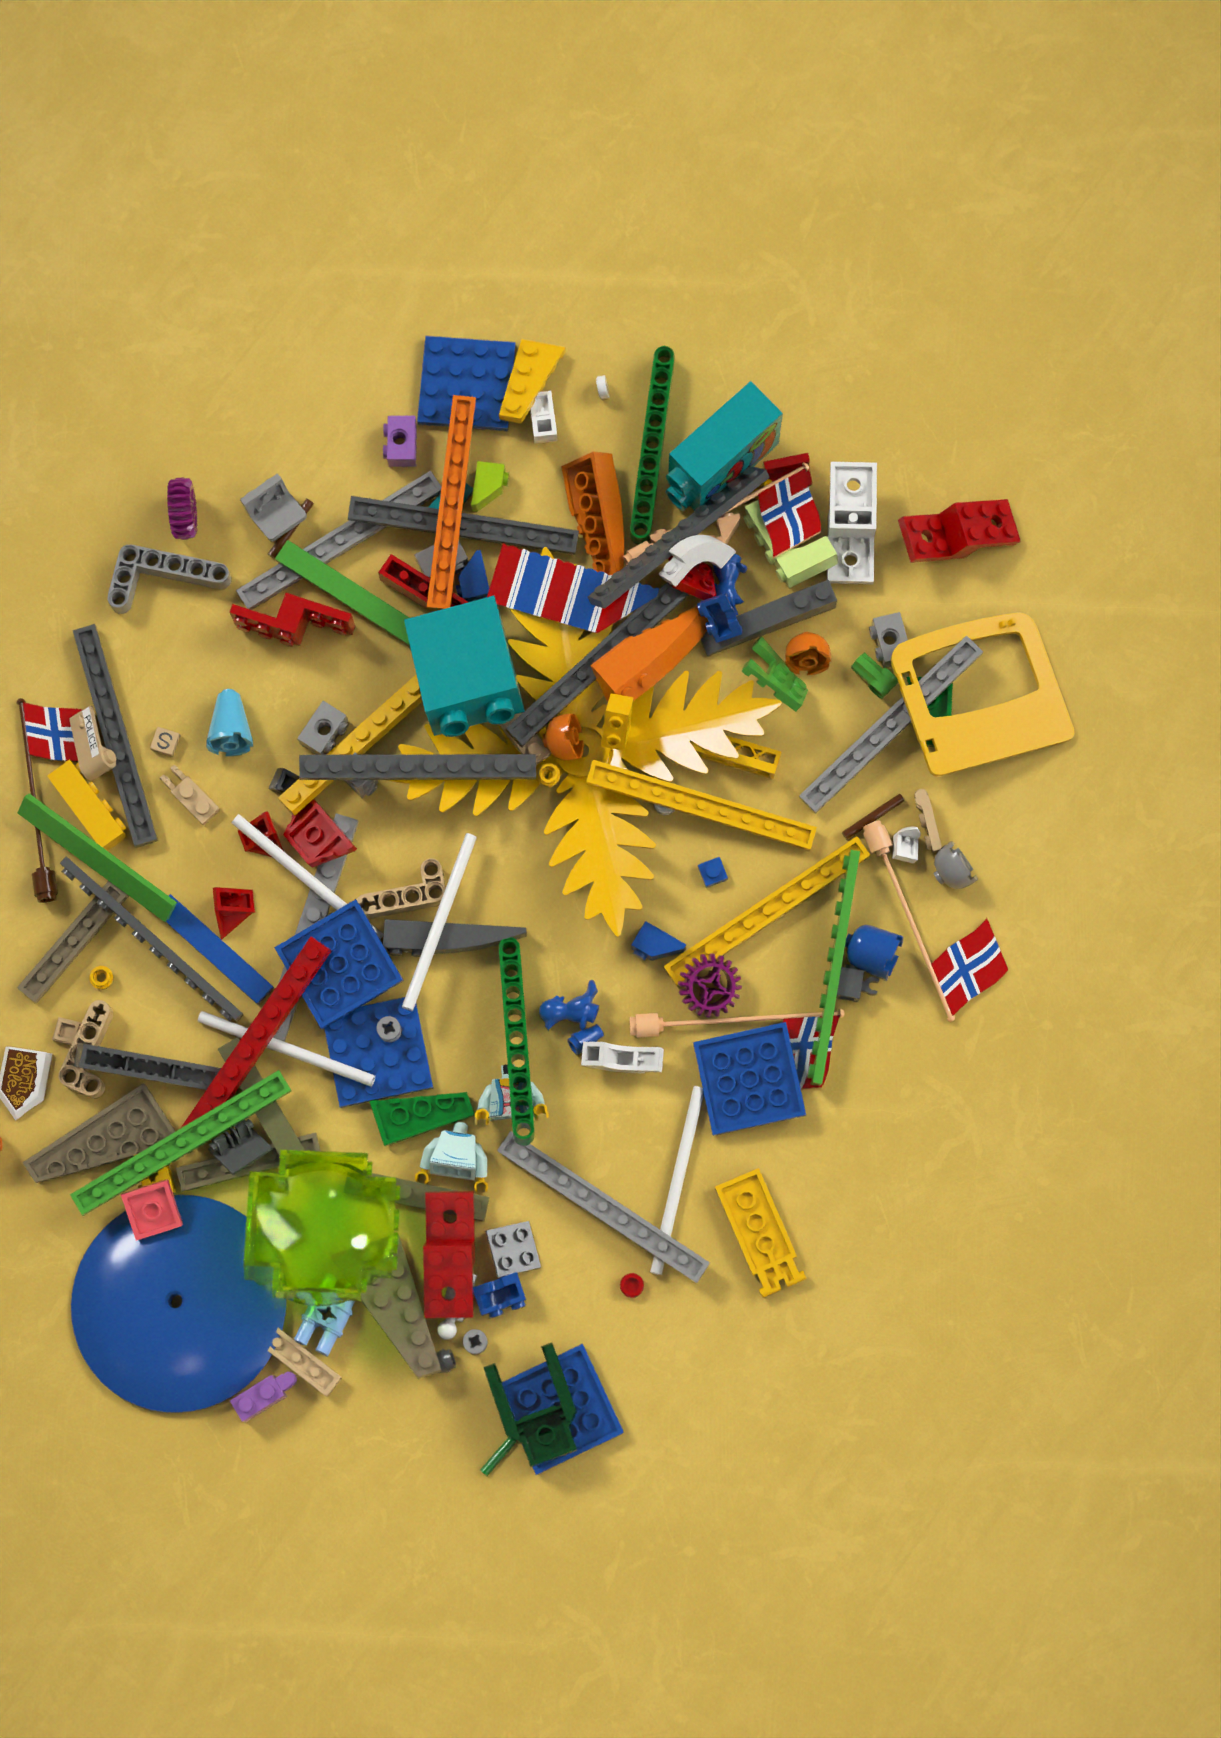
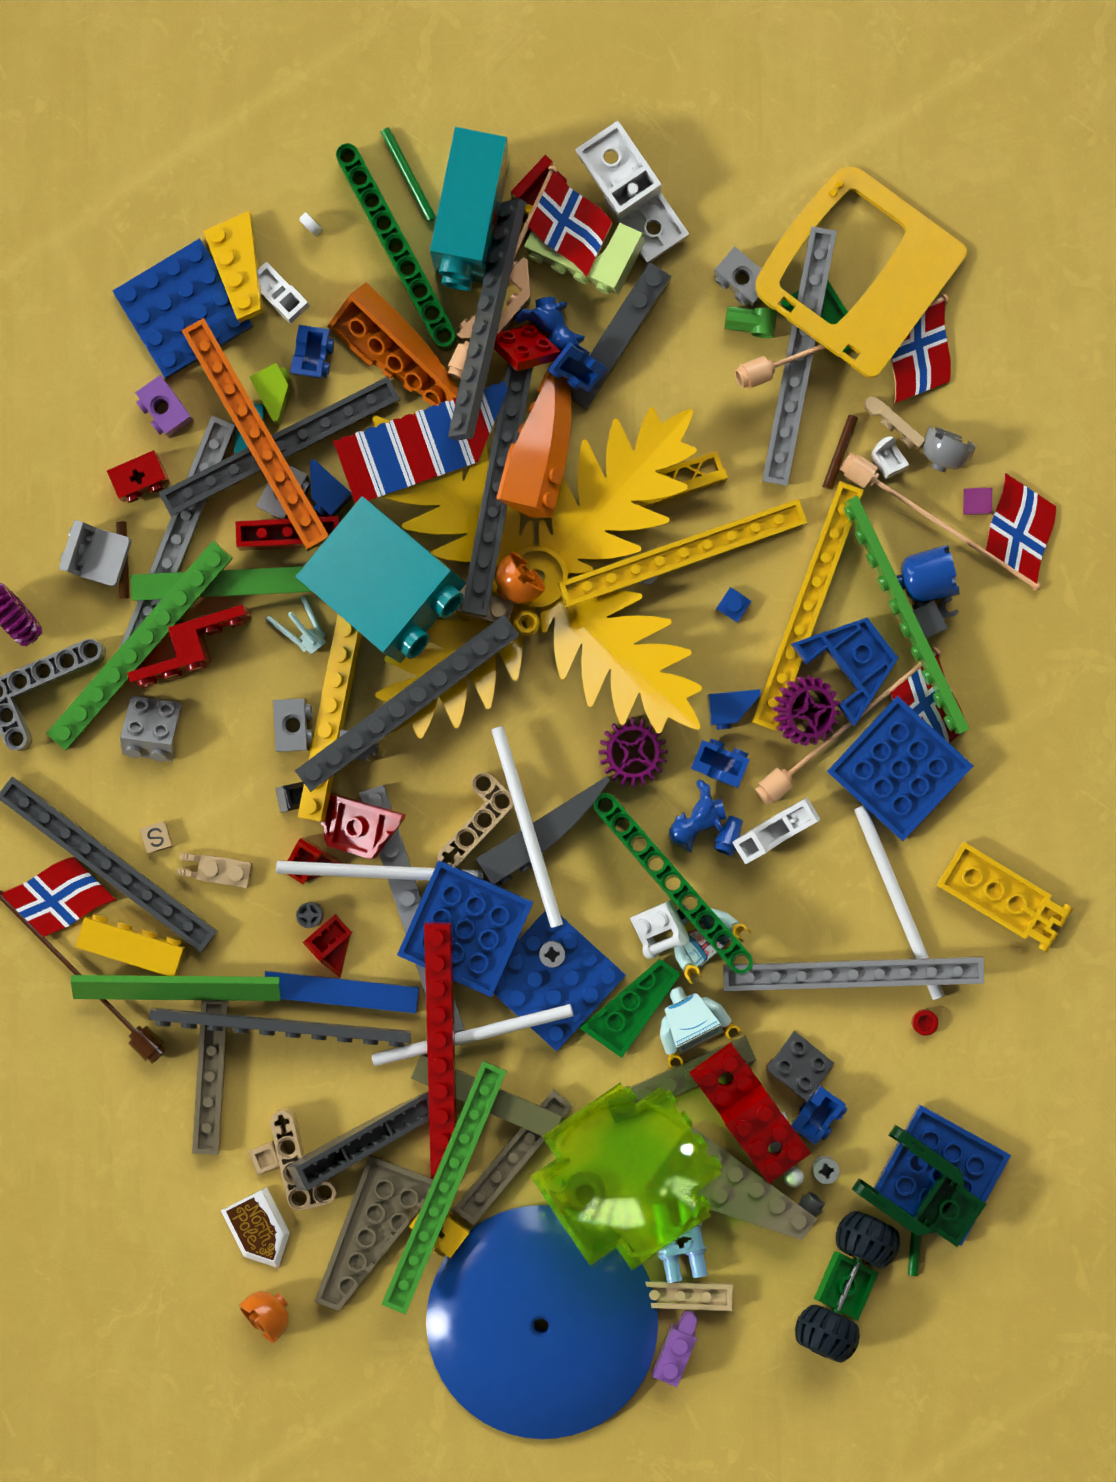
camera: 30 degrees left, 10 degrees up
(92, 757) = (103, 901): tan door -> none
(93, 977) = (251, 1091): yellow plate -> none
(152, 1209) = (462, 1263): coral plate -> none
(219, 660) = (150, 728): none -> light grey bracket
(229, 726) = (204, 782): medium azure cone -> none
(230, 873) = (305, 915): none -> dark grey wheel
(239, 1148) = (497, 1152): dark grey hinge -> none
(256, 594) = (139, 645): none -> bright green plate
(337, 469) = (124, 475): none -> red brick
(384, 679) = (311, 639): none -> light aqua plant
(426, 1440) = (847, 1286): none -> black plate
(482, 1061) = (655, 922): none -> white plate
(536, 476) = (312, 352): none -> blue cylinder
(552, 906) = (652, 765): none -> magenta gear
(616, 978) = (720, 763): none -> blue cylinder
(617, 722) = (556, 532): yellow brick -> none
(692, 552) = (512, 326): white arch -> none
(700, 393) = (408, 174): none -> green bar
(778, 676) = (670, 386): bright green wing -> none
(780, 973) = (859, 654): none -> blue wing
(808, 653) = (677, 342): orange cylinder -> none
(950, 924) = (977, 501): none -> magenta slope
(959, 530) = (734, 131): red bracket -> none
(978, 791) = (917, 364): none -> flag

